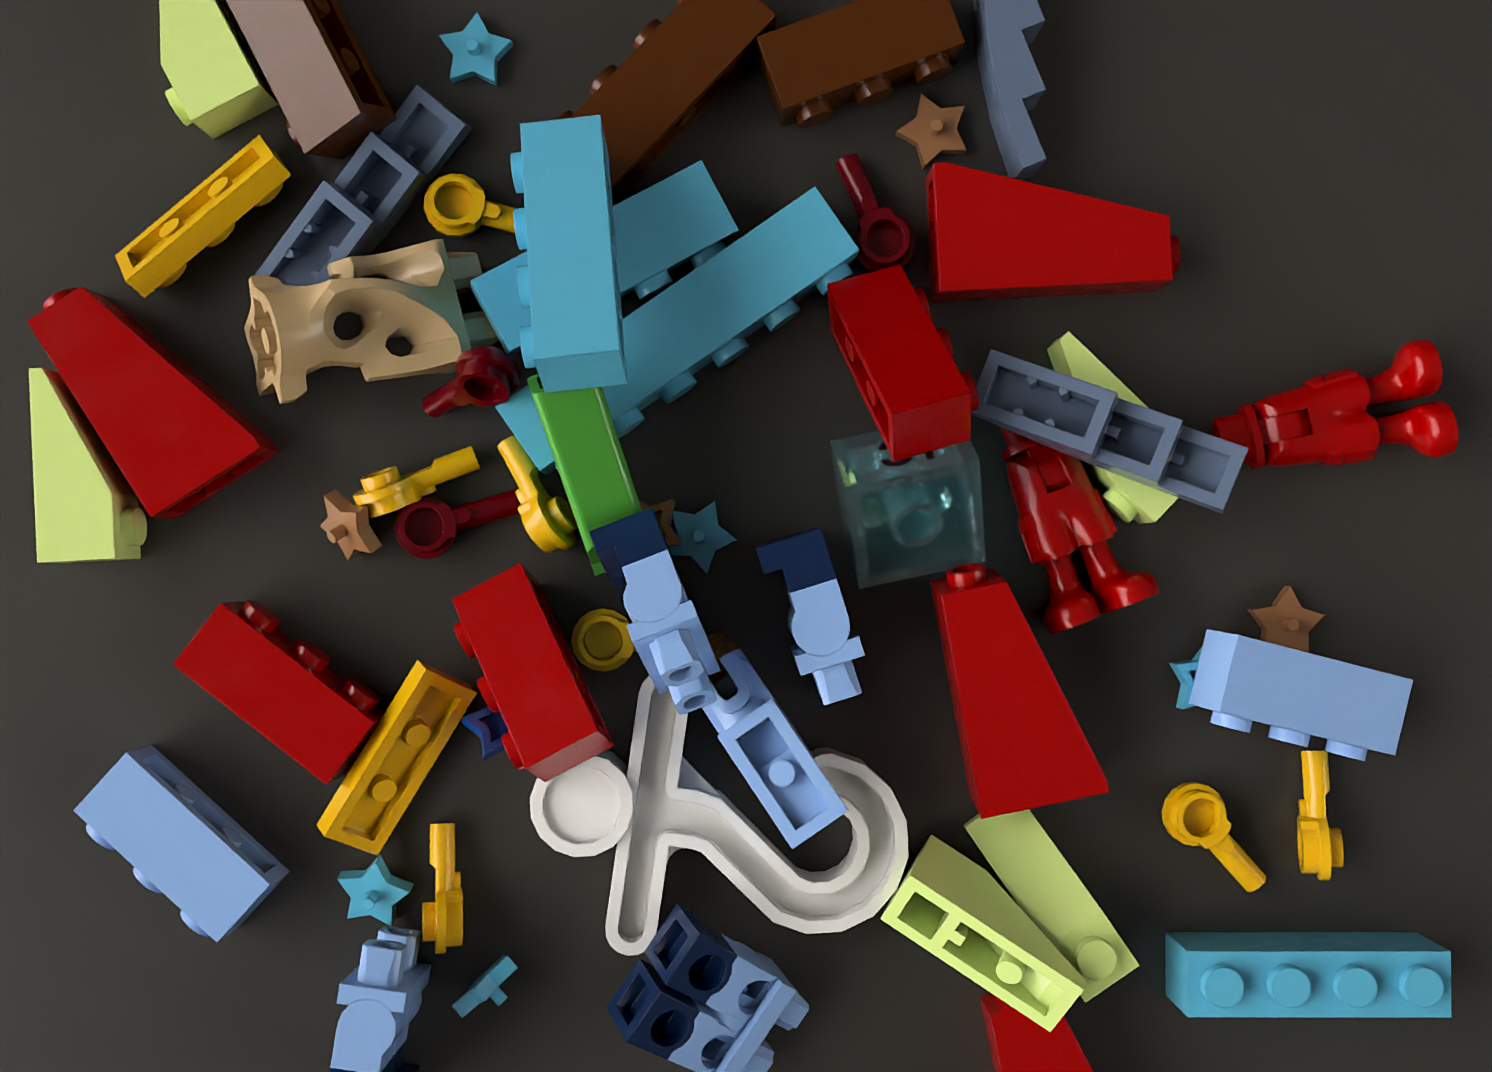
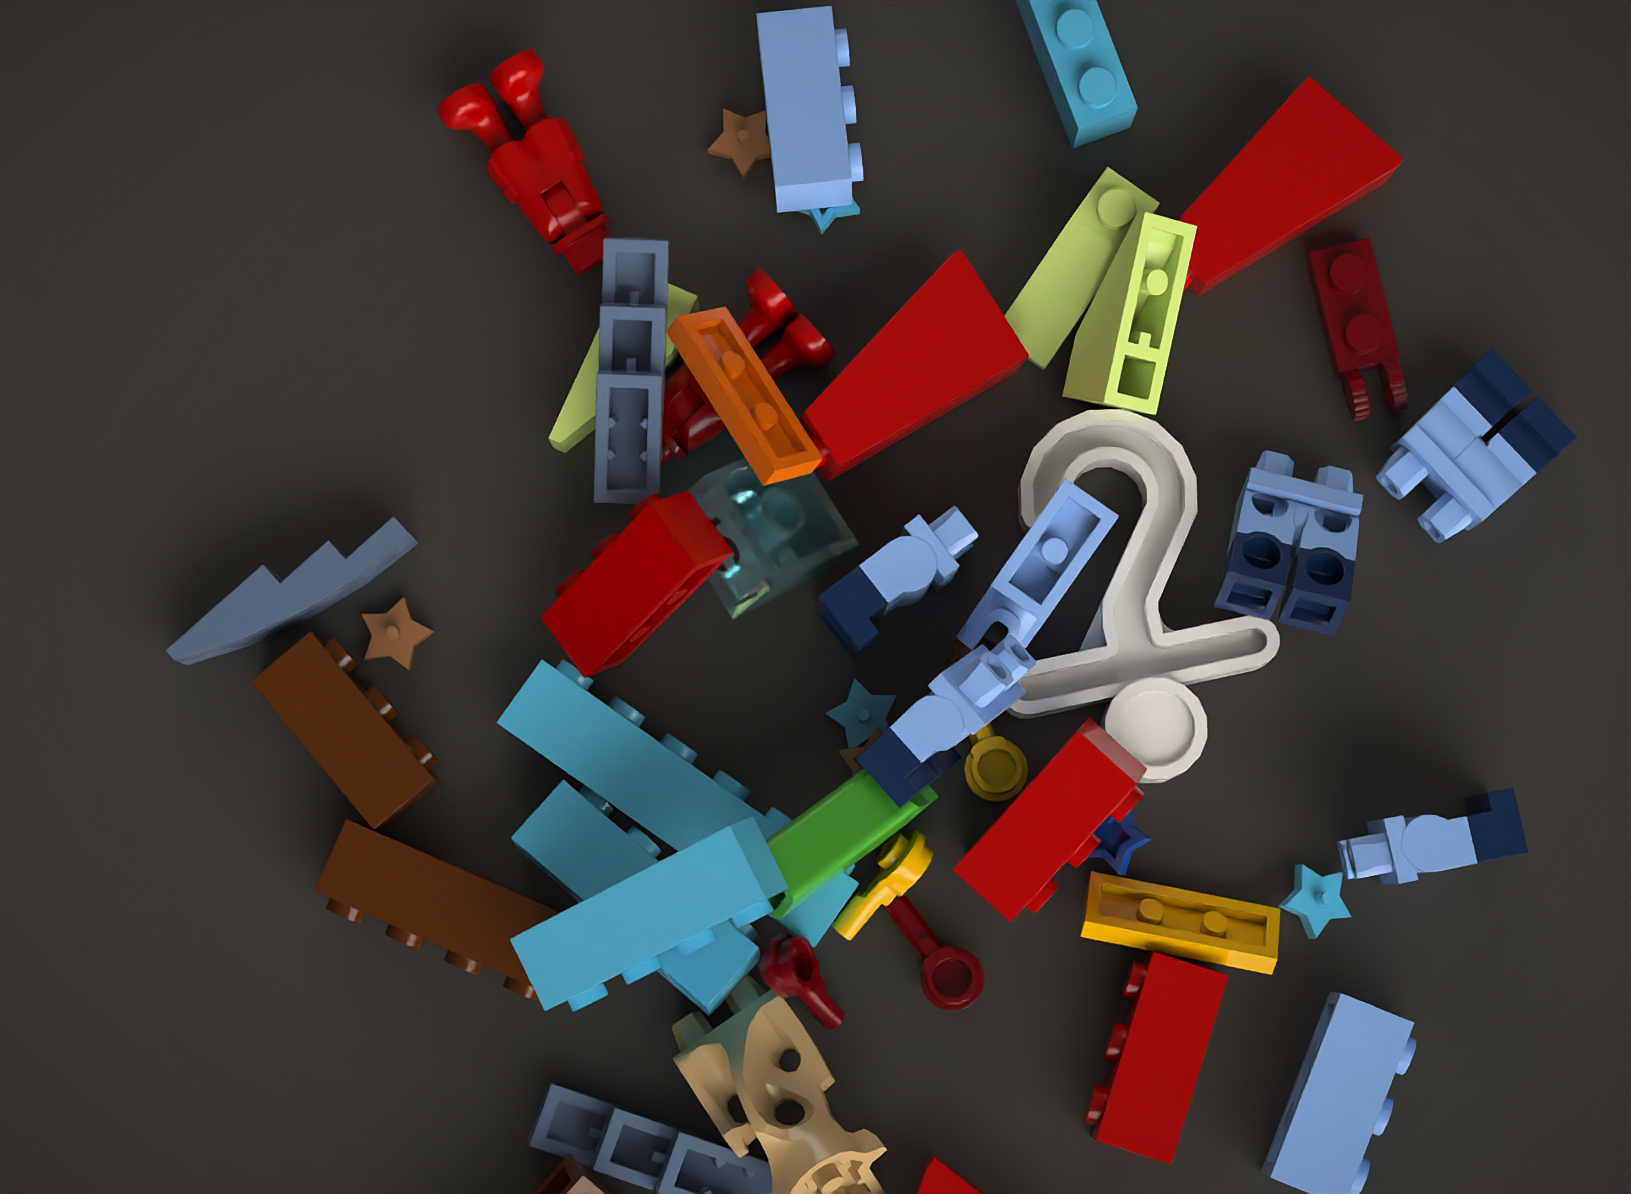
camera: 110 degrees left, 5 degrees down
(349, 526) = (978, 1052): medium nougat piece -> none
(390, 491) = (930, 1024): yellow plate -> none
(444, 918) = (1313, 821): yellow plate -> none
(459, 207) = (630, 1062): yellow plate -> none
(475, 52) = (473, 1106): medium azure piece -> none
(486, 986) = (1360, 757): medium azure piece -> none
(881, 235) = (516, 645): dark red plate -> none
(1036, 241) = (472, 507): red slope -> none
(1042, 529) = (744, 395): none -> orange plate
(1198, 817) = (954, 158): yellow plate -> none
(1317, 844) = (936, 41): yellow plate -> none

